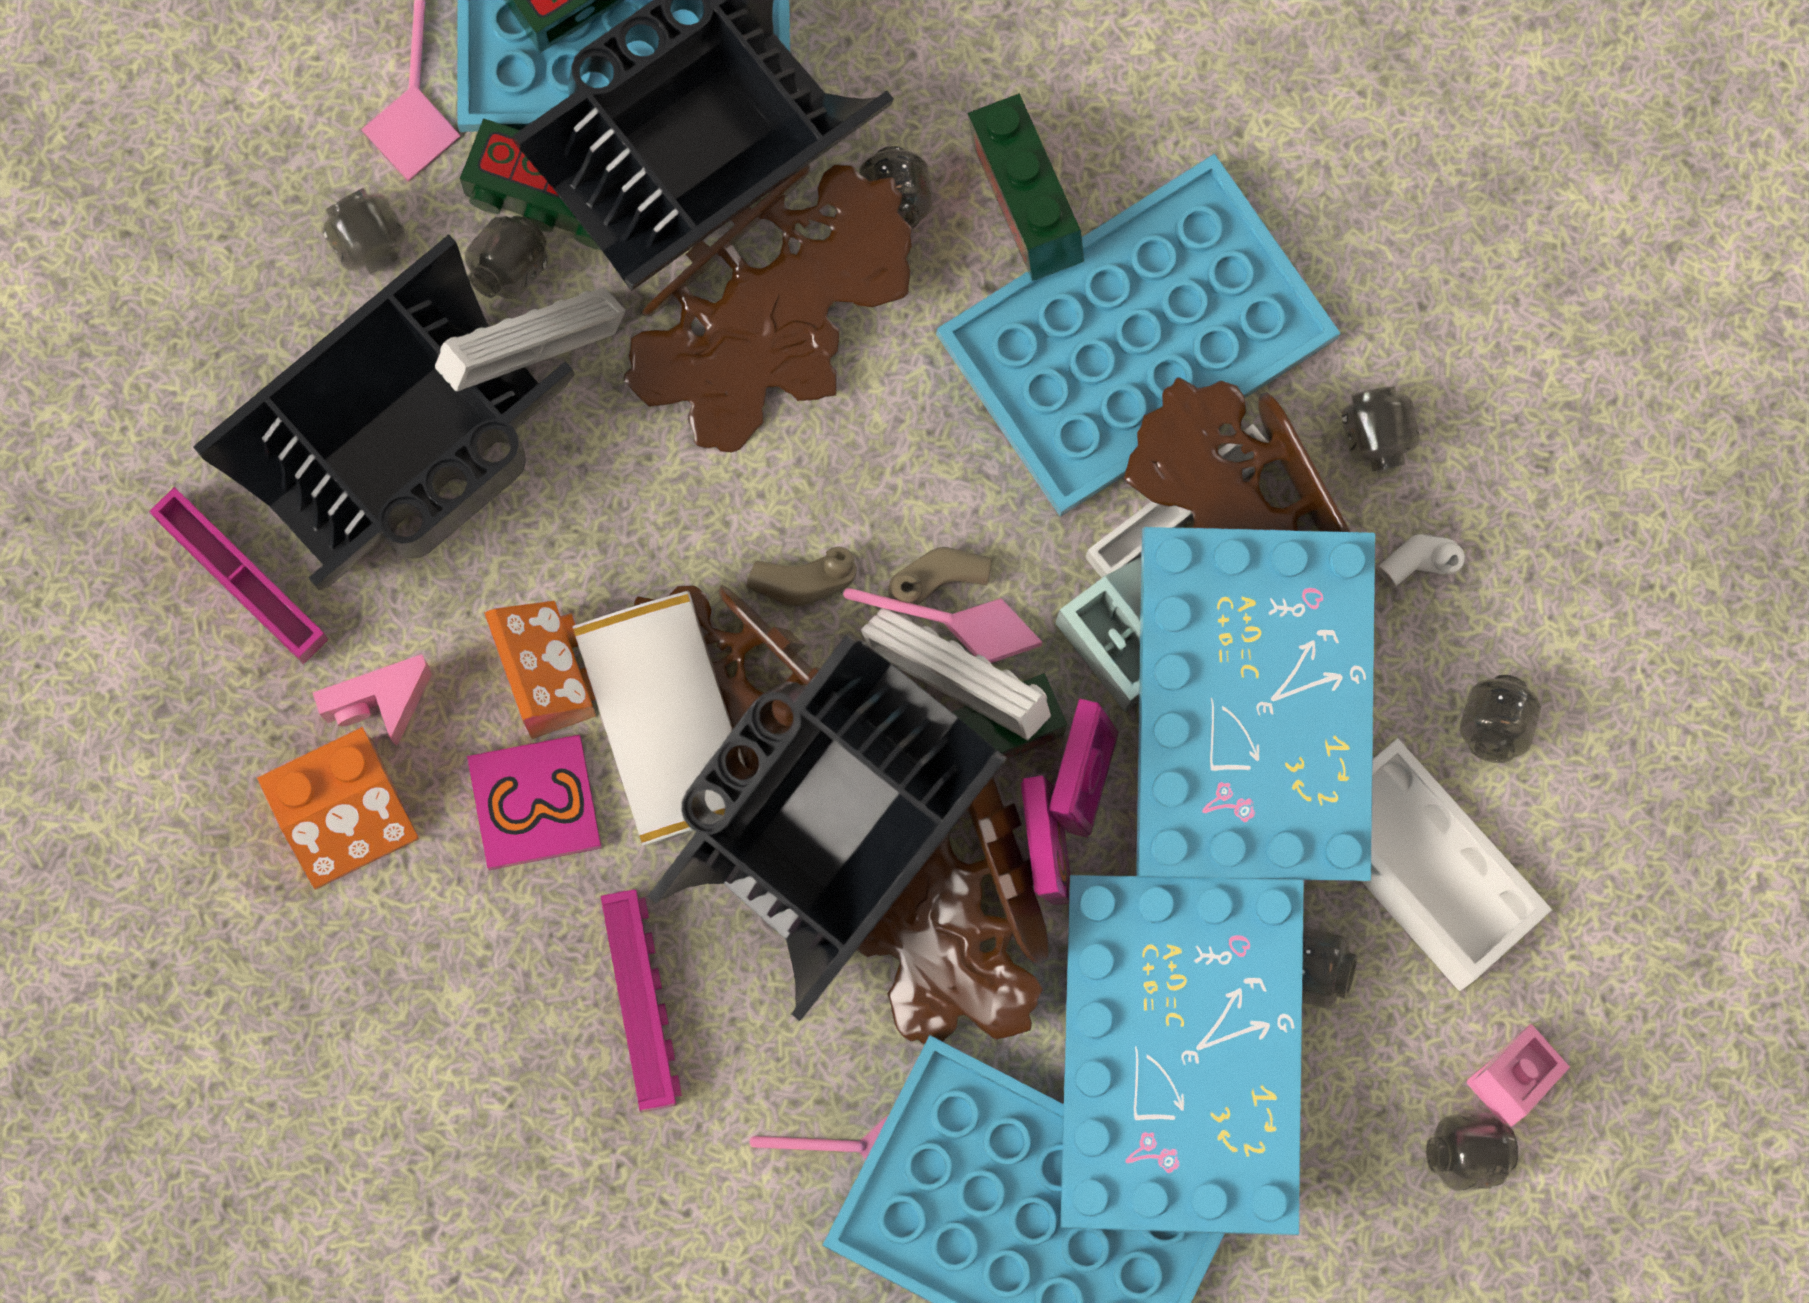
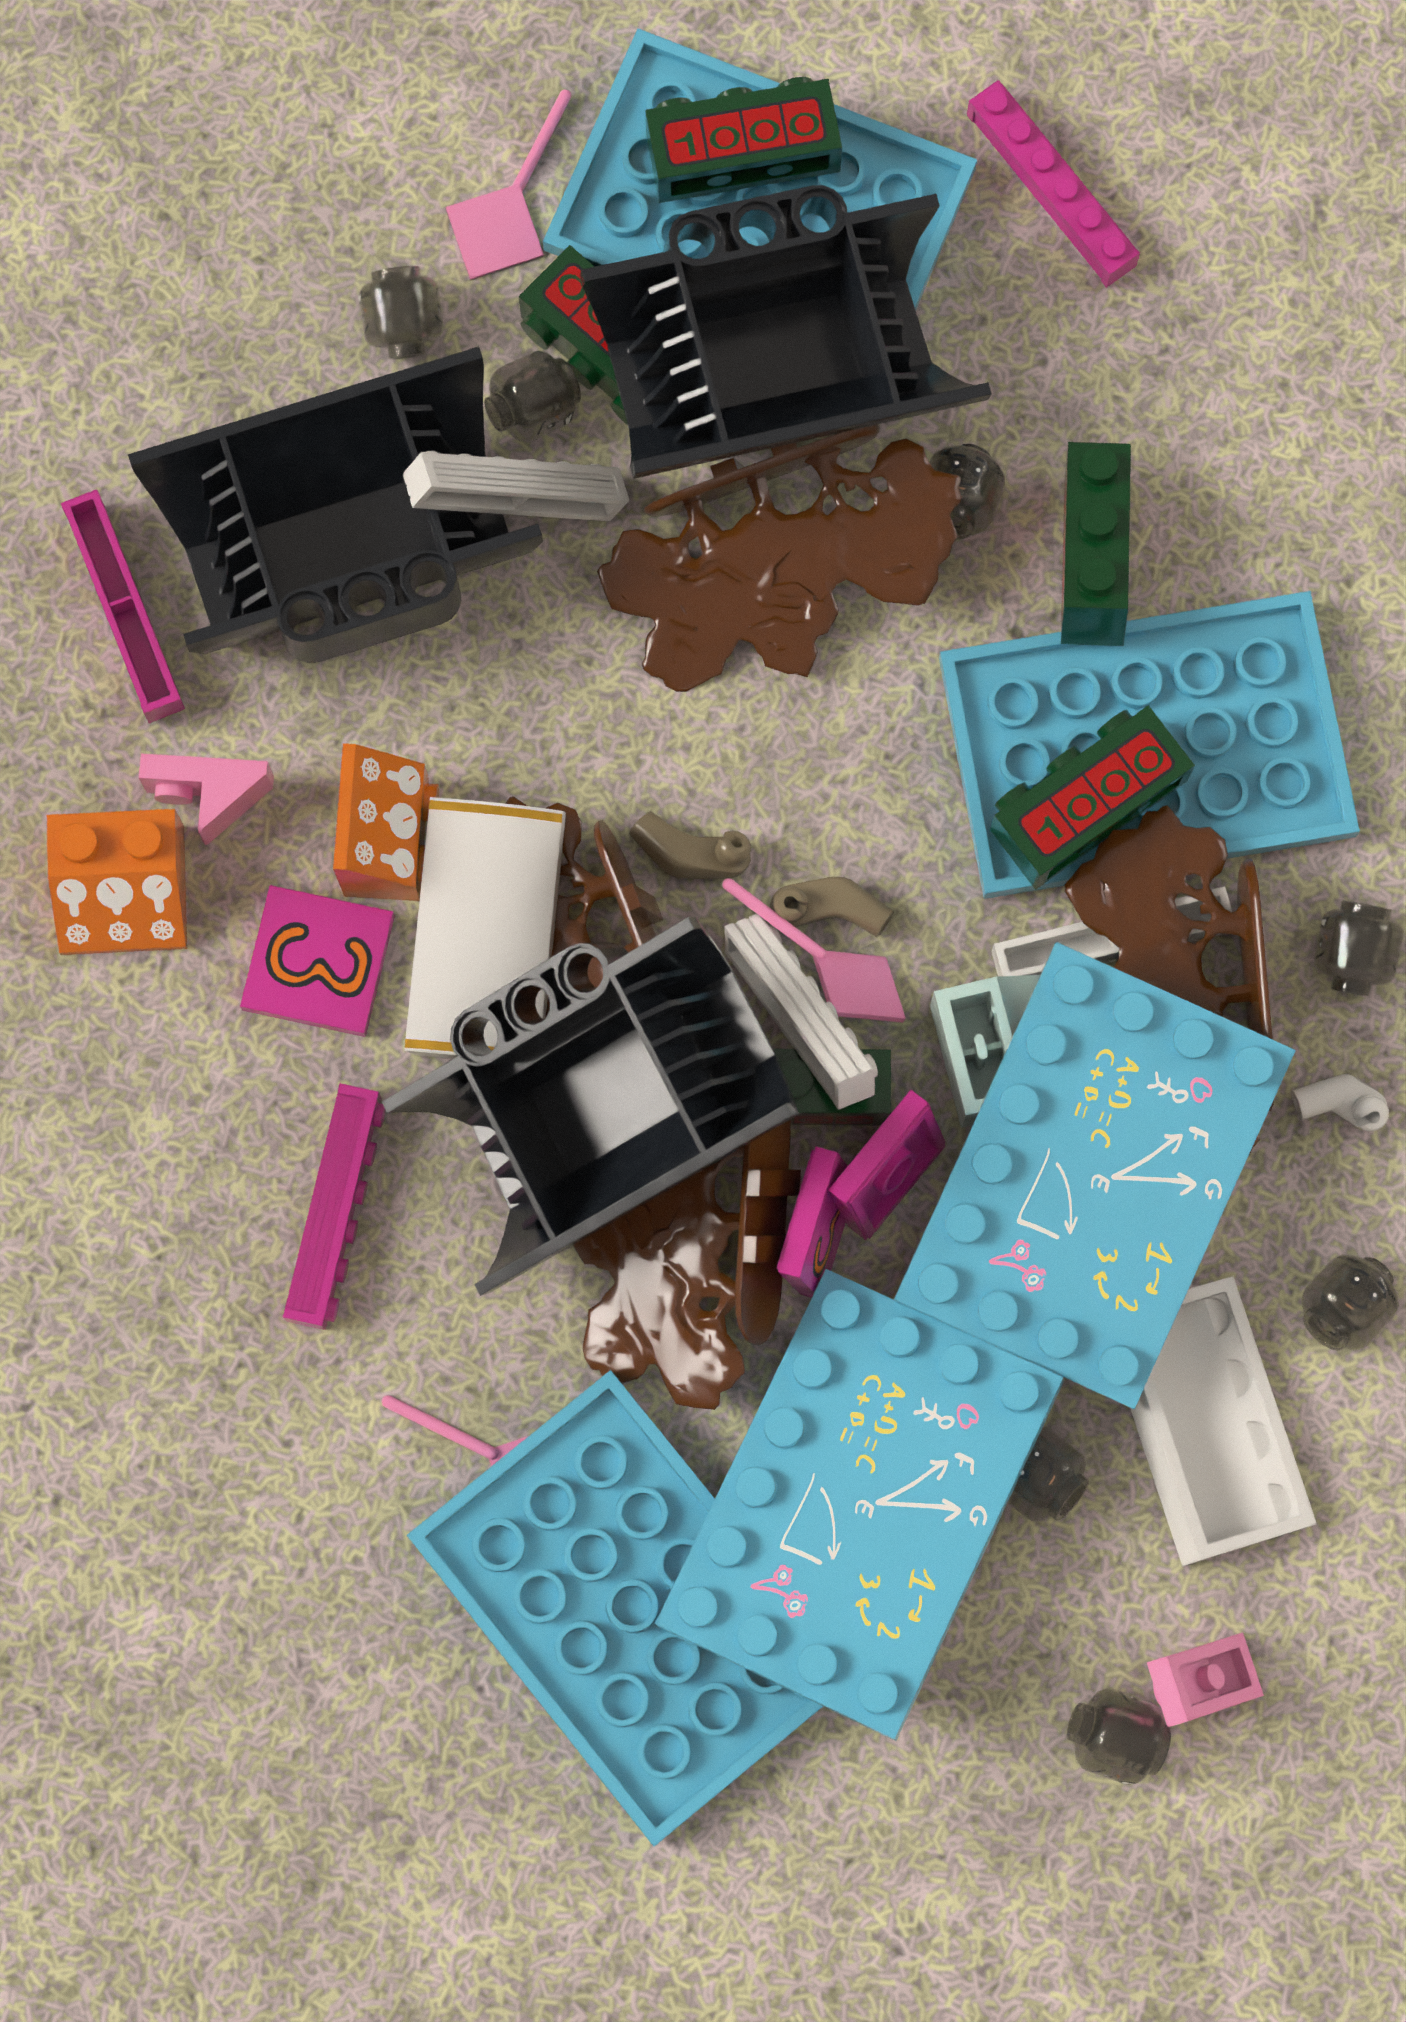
camera: 30 degrees right, 0 degrees up
(1112, 395) = (1090, 794): none -> dark green brick

